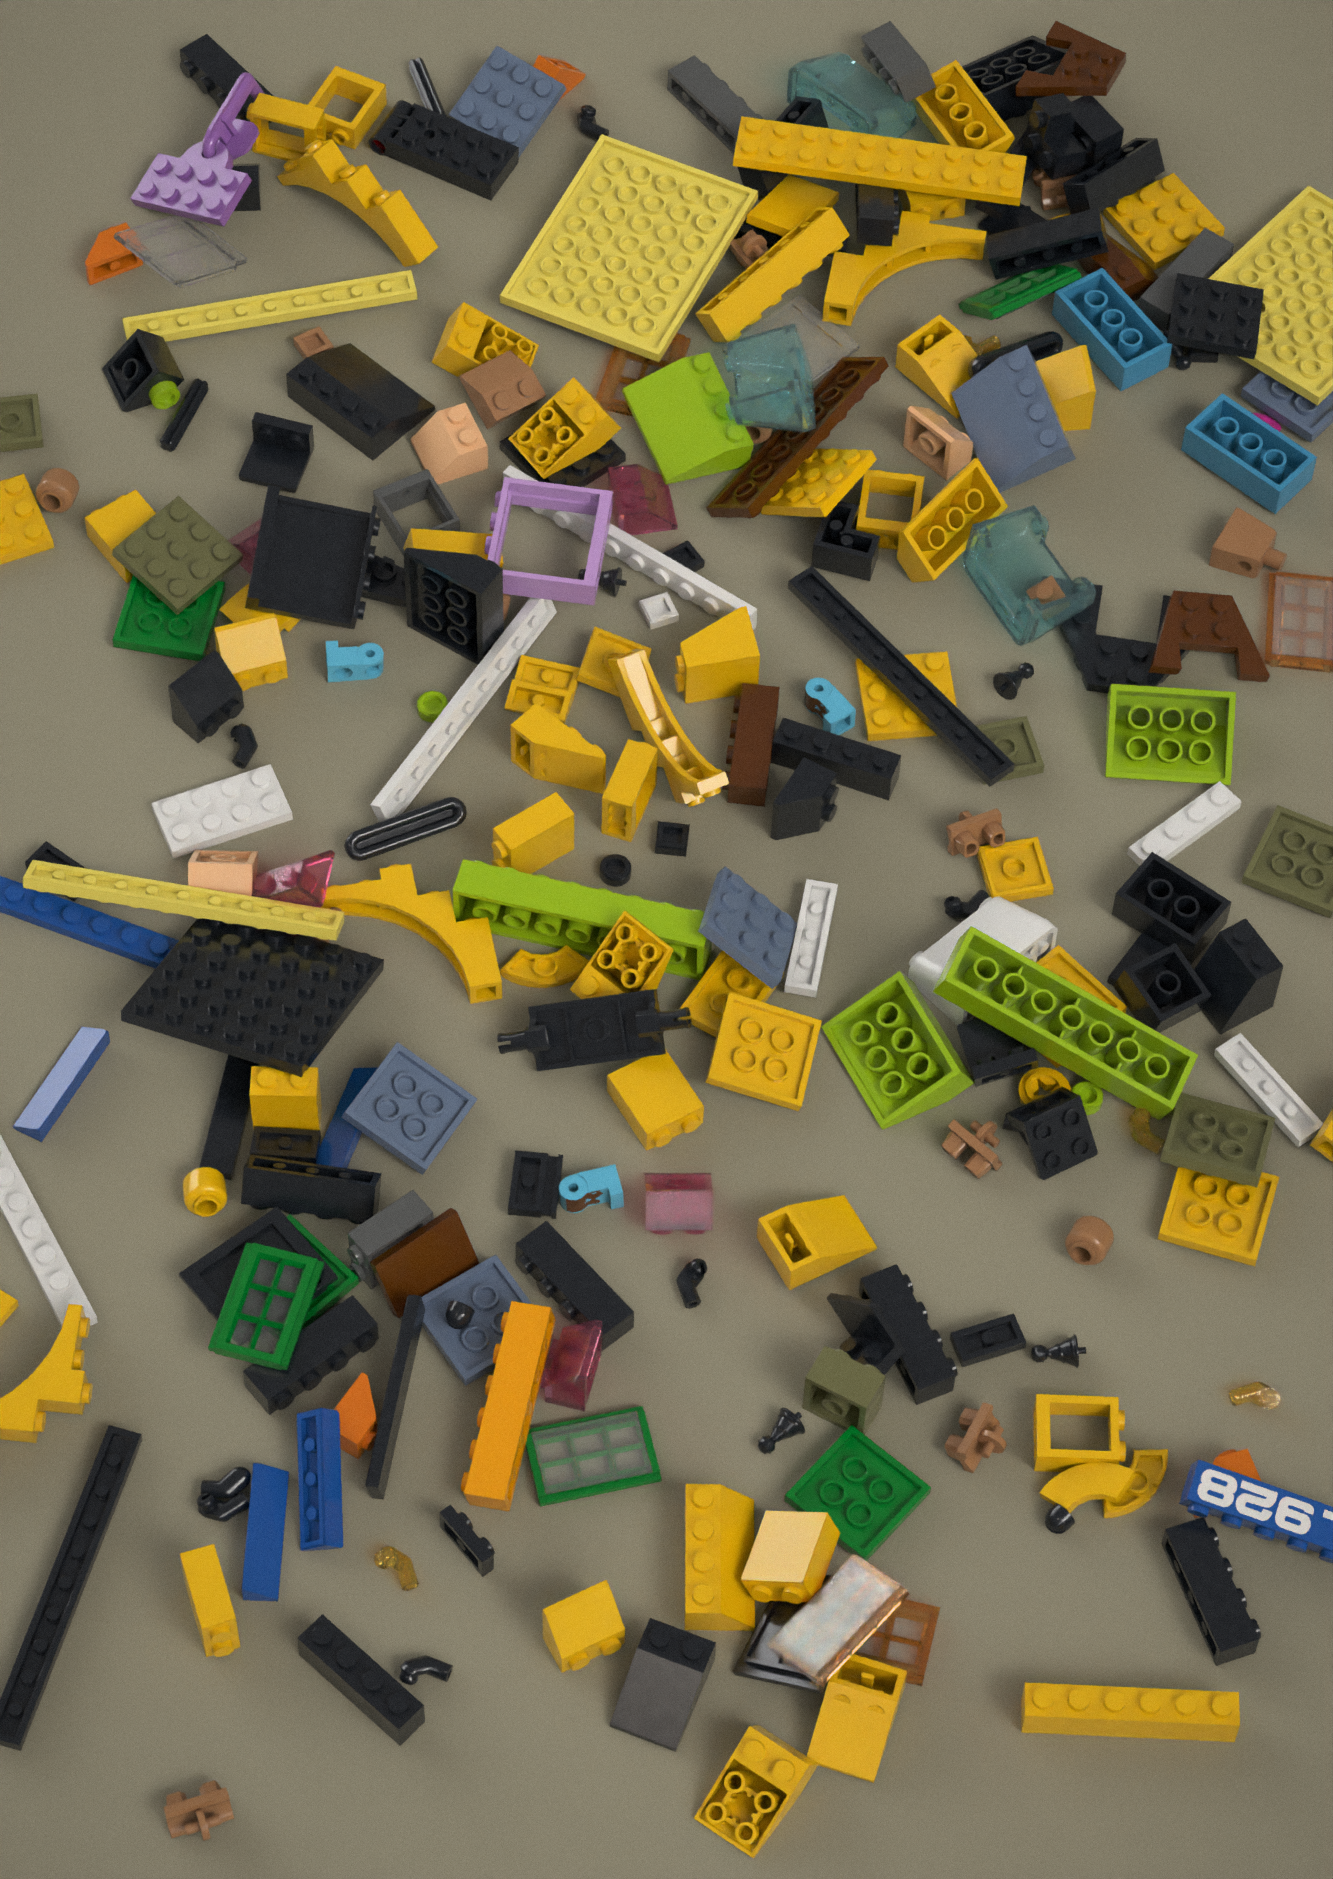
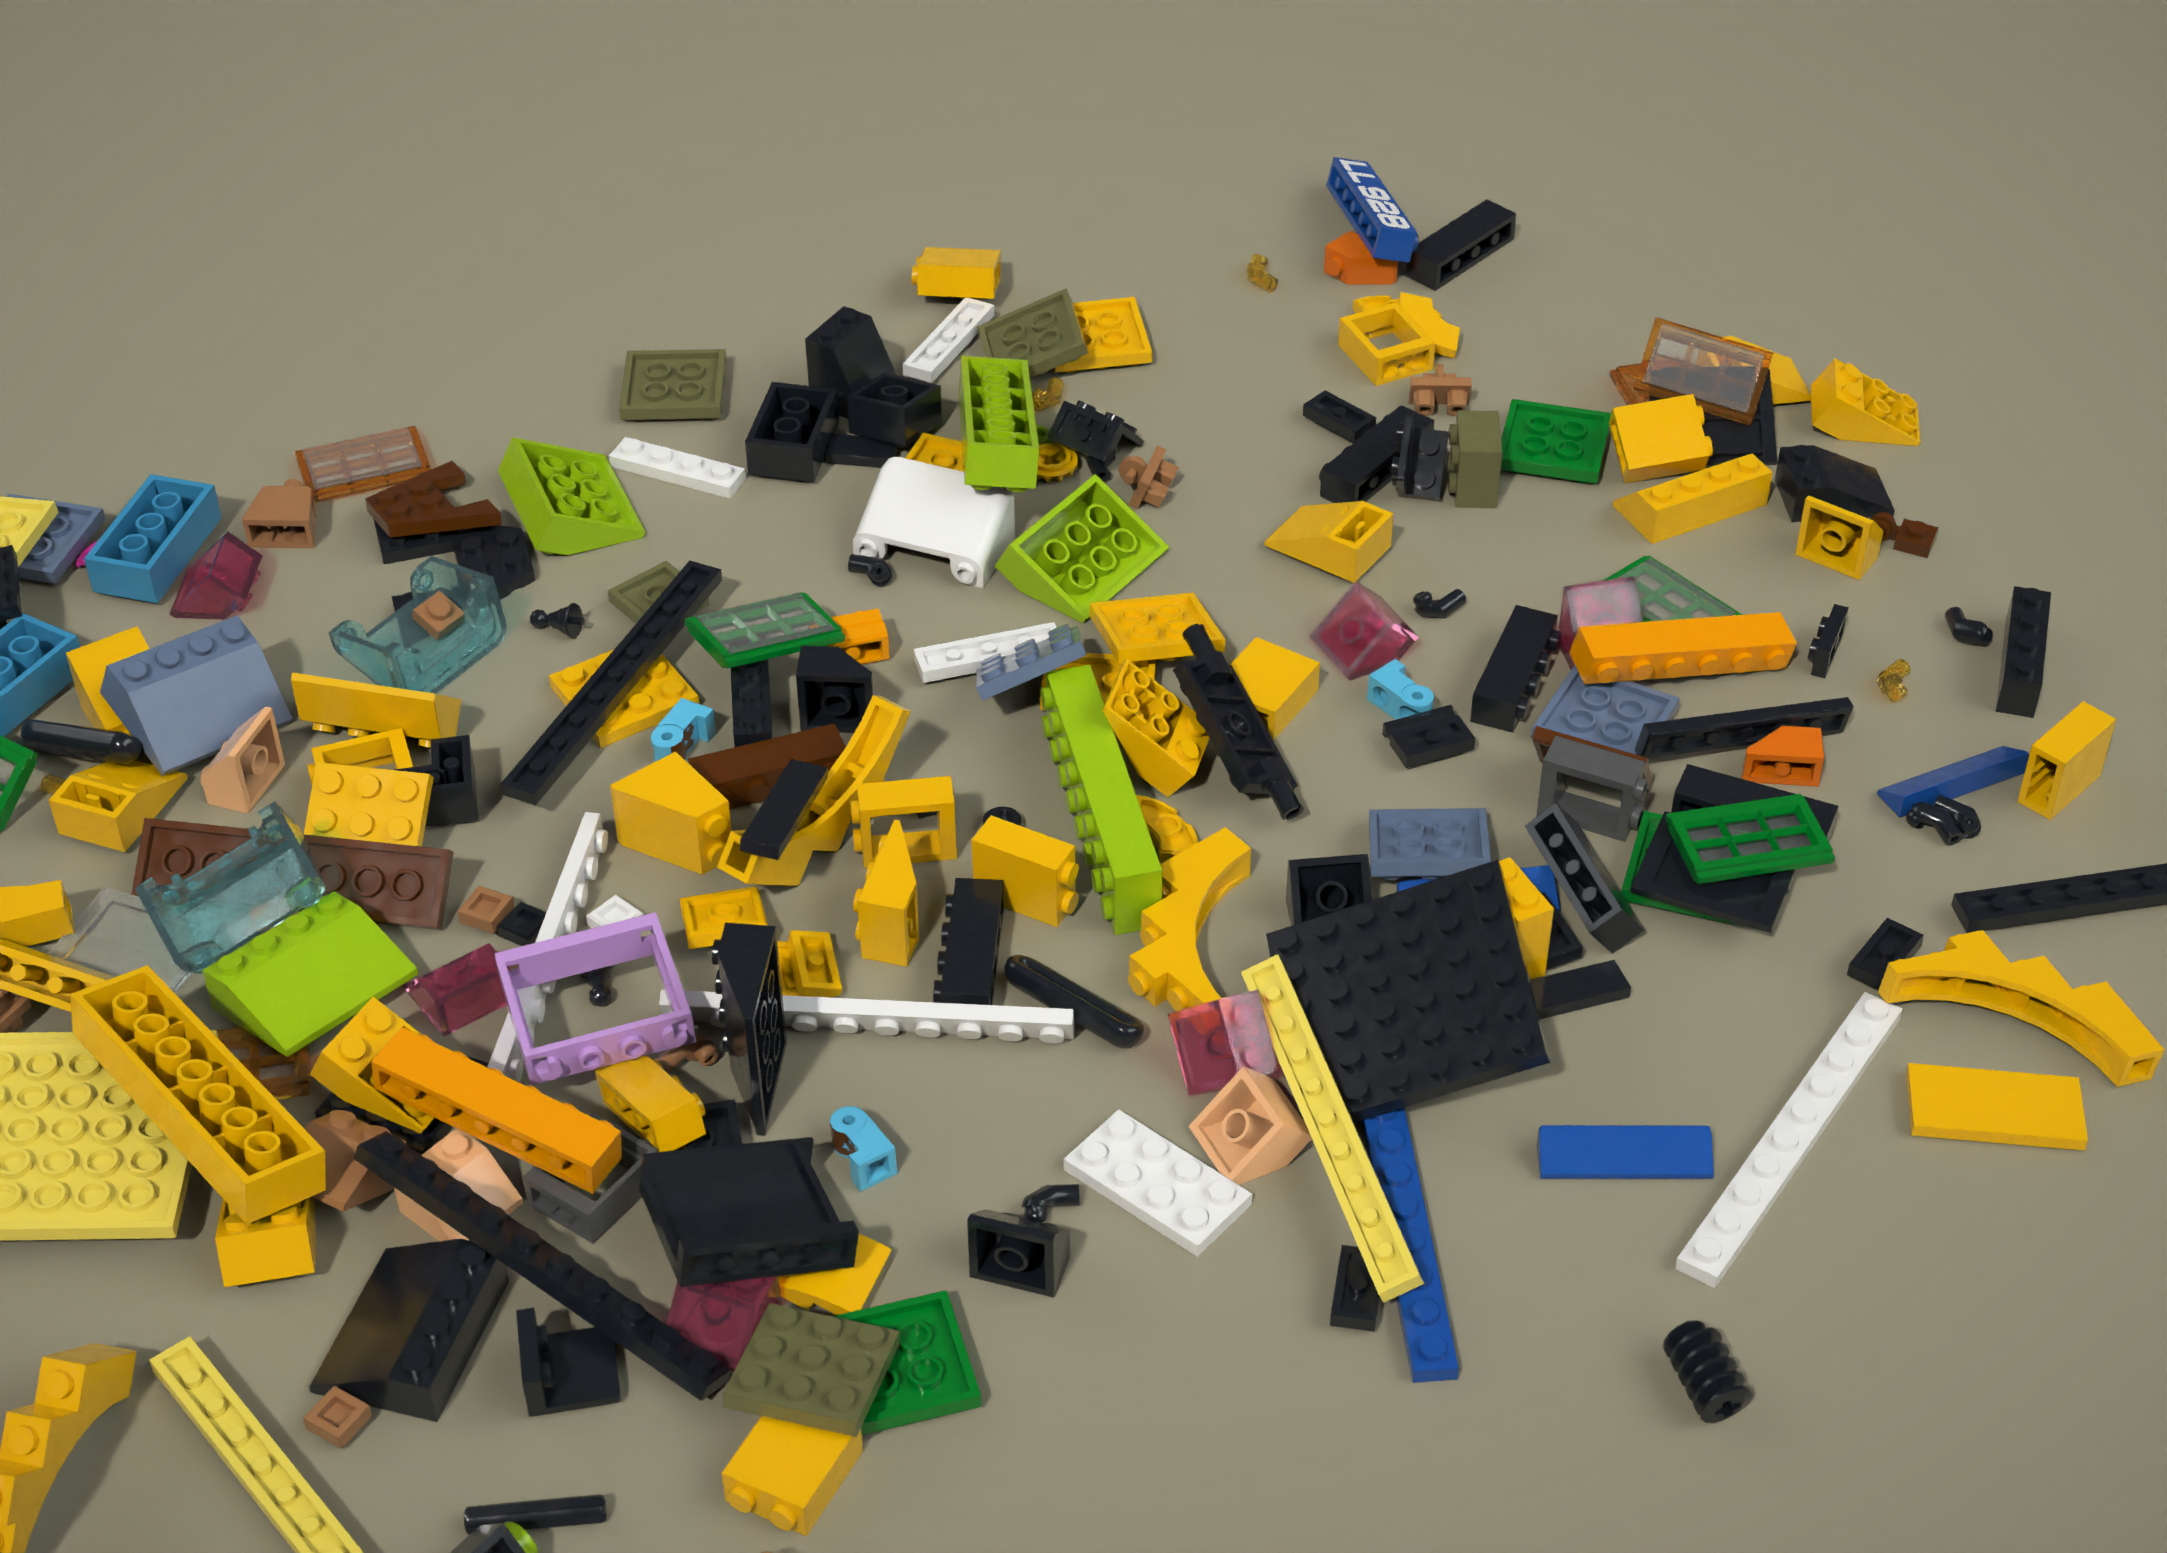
camera: 115 degrees left, 15 degrees down
(120, 1353) = (1886, 945): none -> black plate
(204, 1191) = (1654, 965): yellow head -> none
(253, 651) = (920, 1234): yellow slope -> none
(320, 1480) = (1876, 747): blue slope -> none
(349, 449) = (544, 1265): none -> black plate
(399, 1020) = (1326, 885): none -> black slope
(431, 705) = (877, 1057): lime tile -> none
(459, 1314) = (1624, 714): black hinge -> none
(472, 454) = (497, 1109): none -> light orange brick
(480, 784) = (970, 942): none -> black brick
(566, 1713) = (1910, 537): none -> reddish brown plate
(579, 309) = (198, 1094): none -> yellow brick
(651, 690) = (783, 809): none -> black tile
(707, 538) = (485, 909): none -> medium nougat plate
(785, 1427) = (1530, 501): black piece -> none
(877, 848) = (864, 636): none -> light orange brick
(885, 771) = (764, 630): none -> clear piece
(974, 832) = (777, 581): medium nougat hips -> none
(993, 1053) = (1055, 481): black bracket -> none
(1015, 870) = (803, 555): yellow tile -> none
(1058, 1519) = (1471, 335): black hinge -> none
(1065, 1351) = (1308, 374): black piece -> none
(1089, 1240) = (1191, 387): medium nougat head -> none
(1130, 1712) = (1605, 251): yellow brick -> none
(1176, 485) = (218, 581): none -> clear pink slope

